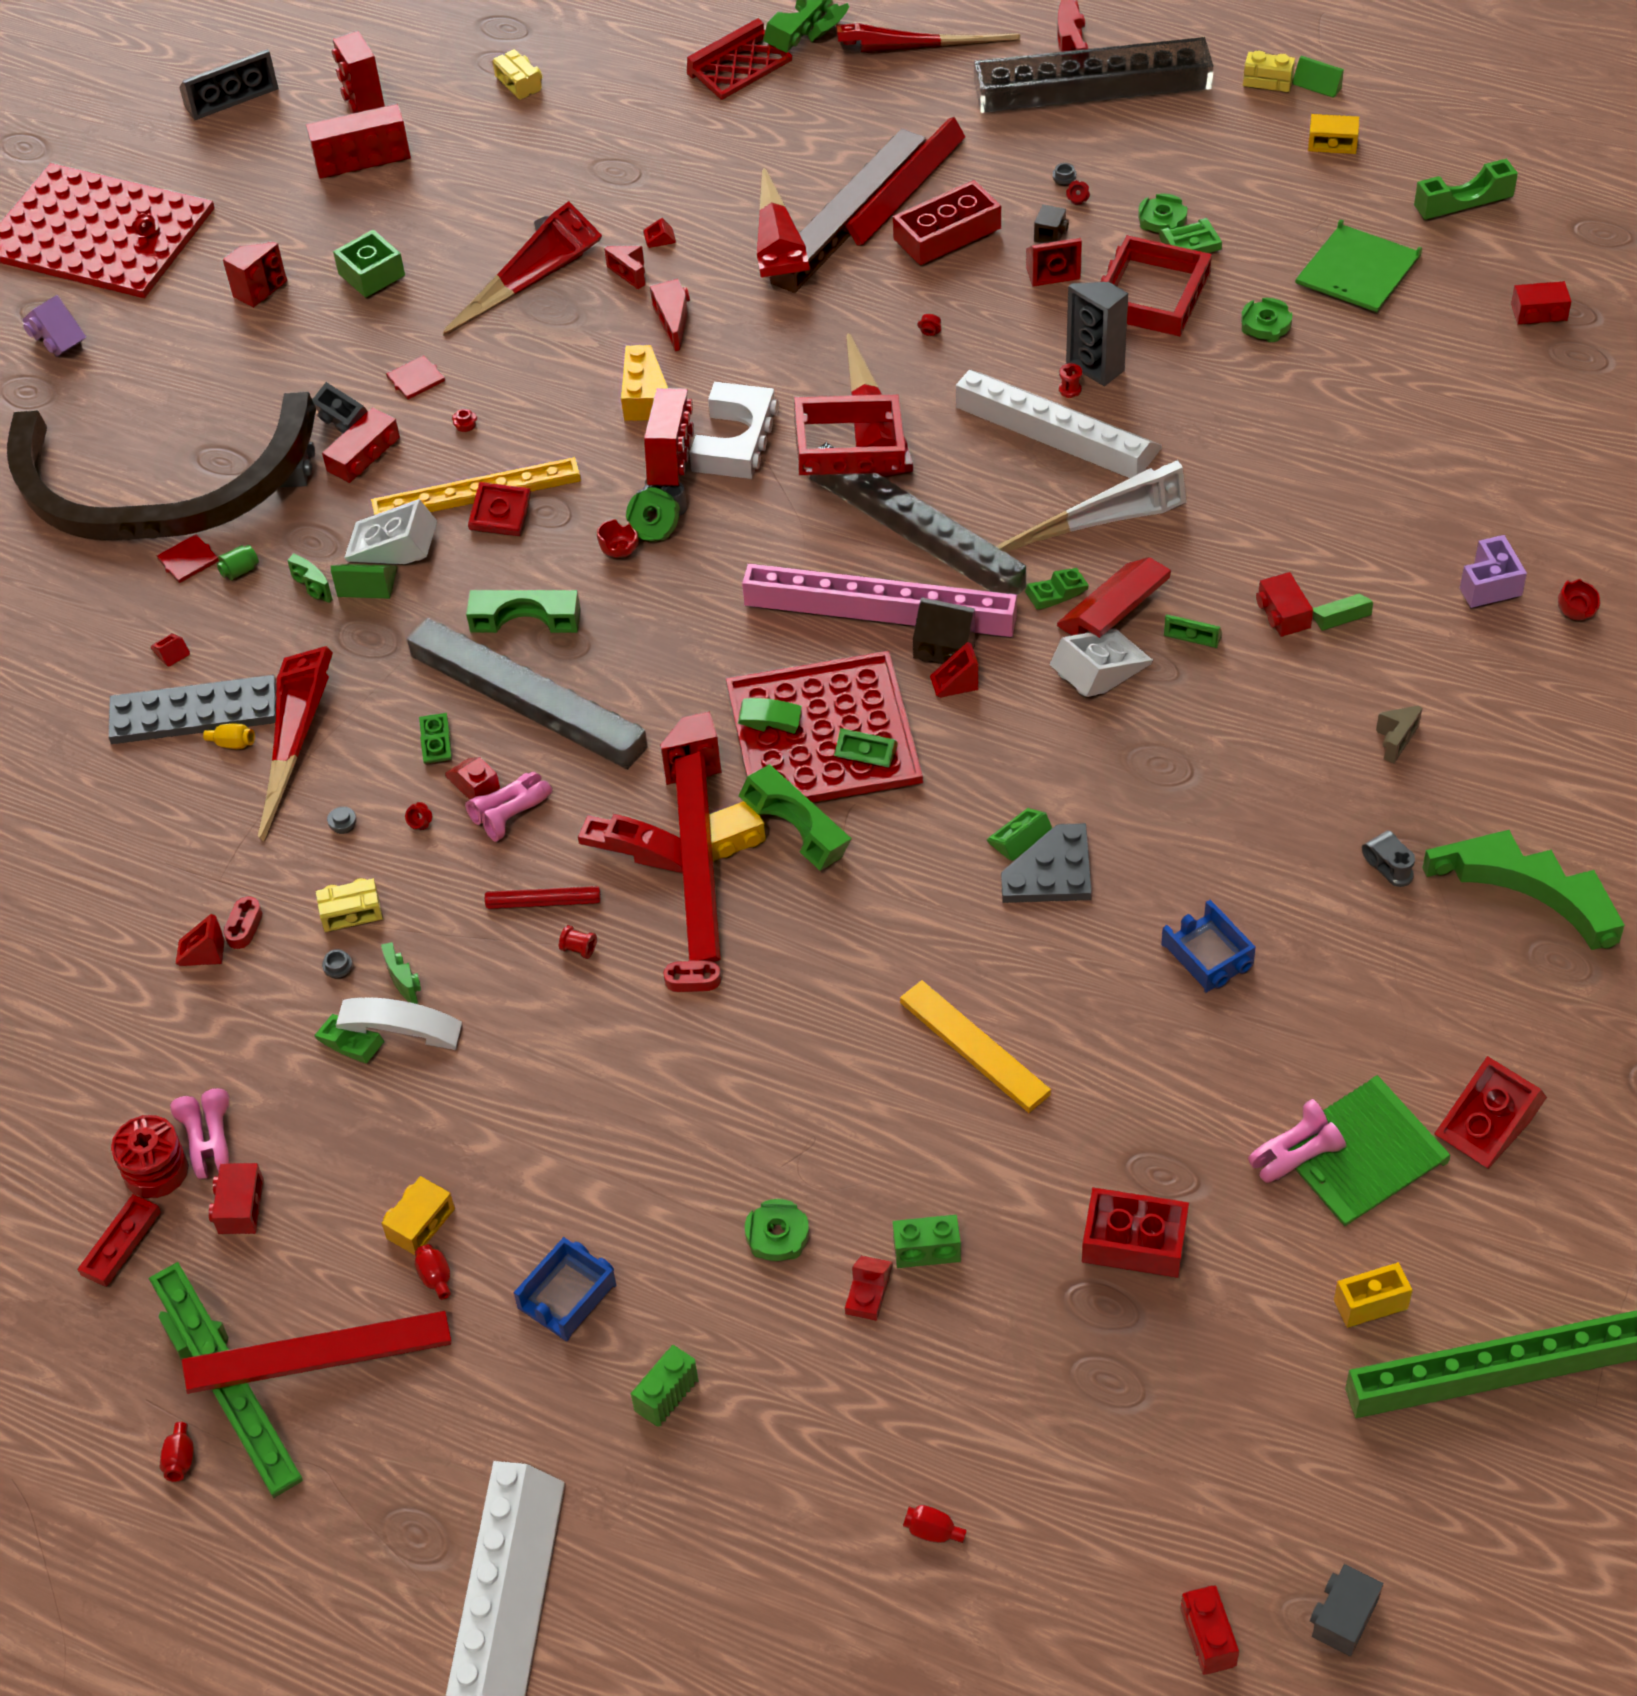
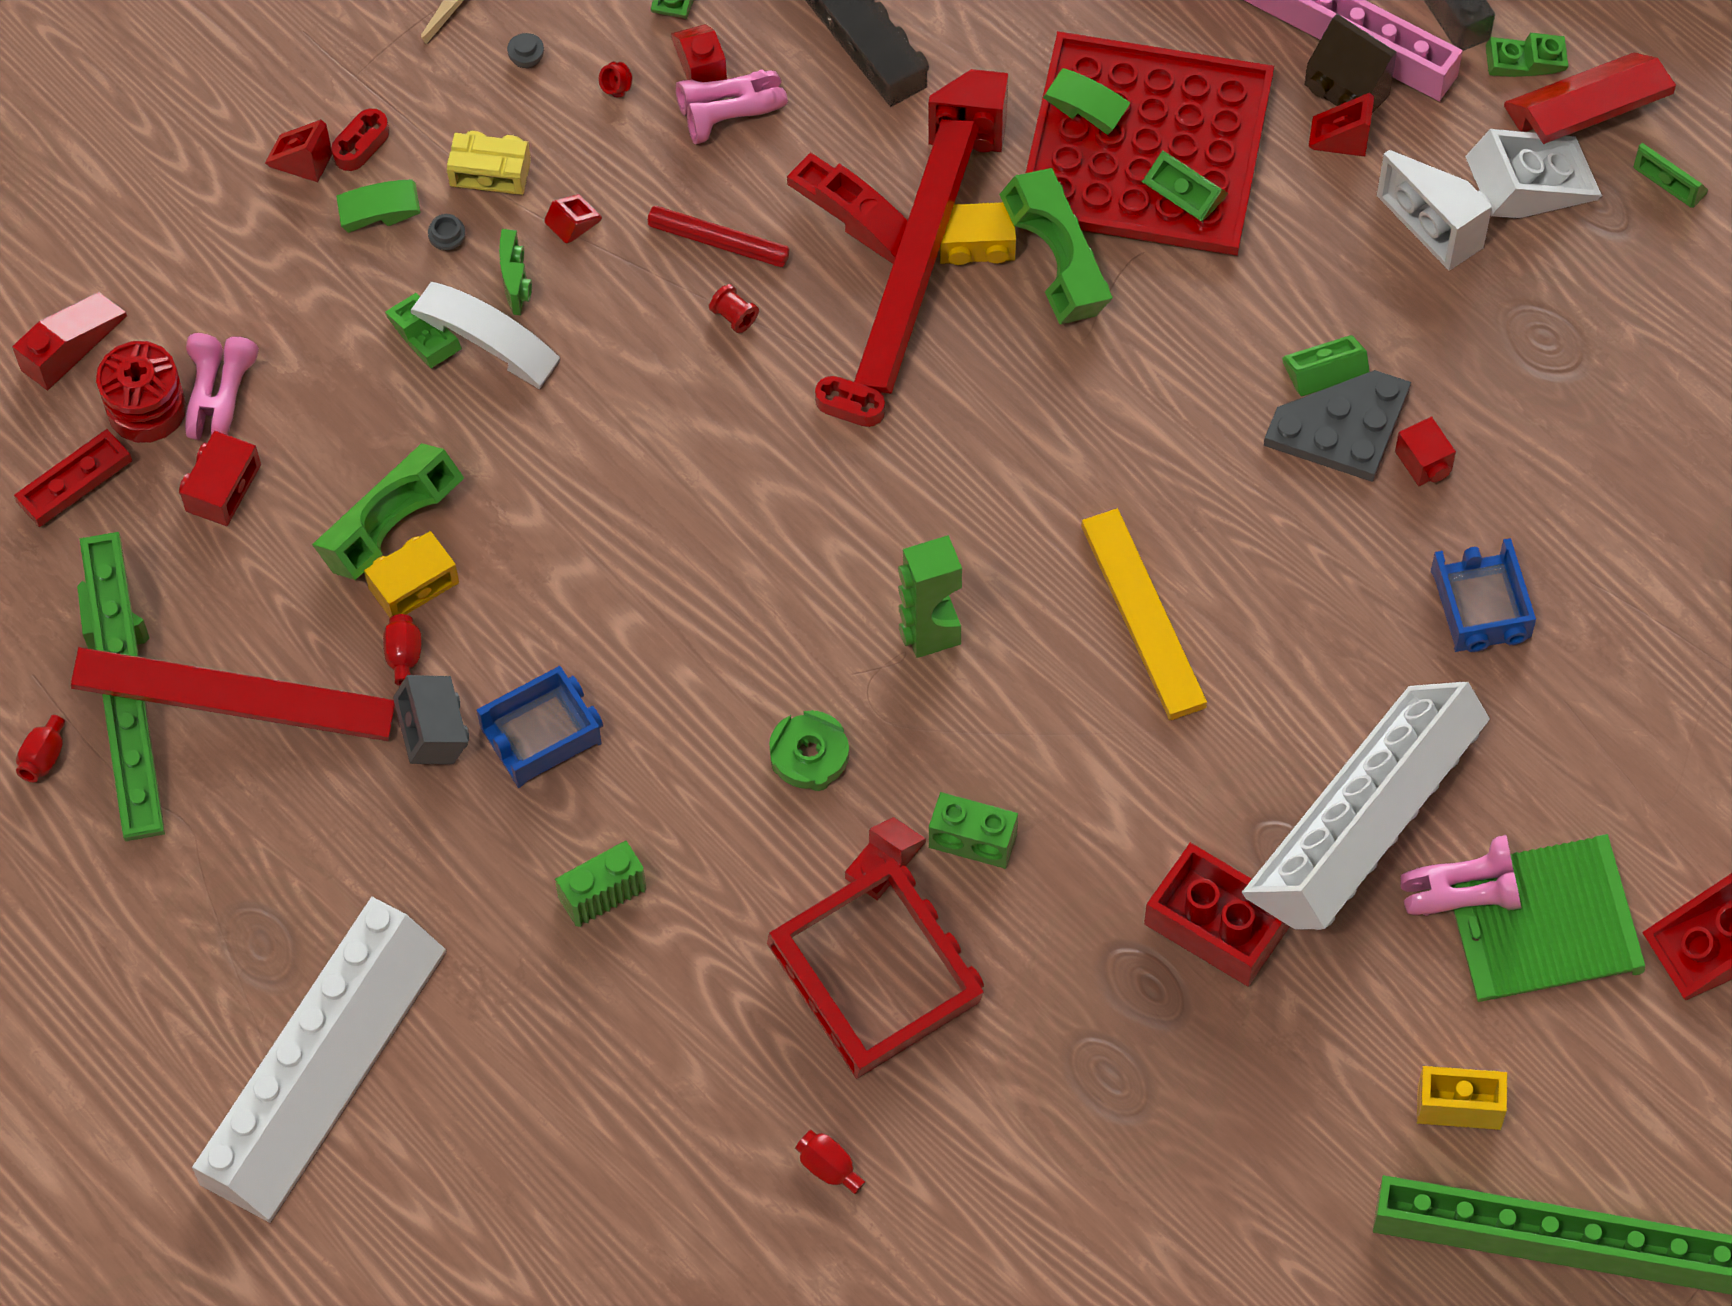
camera: 20 degrees right, 10 degrees up
(71, 1141) = (65, 338): none -> red slope
(282, 957) = (381, 201): none -> bright green slope
(393, 1145) = (414, 483): none -> bright green arch
(426, 922) = (571, 217): none -> red slope
(480, 1314) = (430, 719): none -> dark grey brick
(819, 1066) = (927, 579): none -> bright green arch
(876, 1409) = (823, 1006): none -> red window
(1046, 702) = (1435, 207): none -> white slope
(1120, 865) = (1425, 452): none -> red brick
(1204, 1115) = (1368, 805): none -> white slope

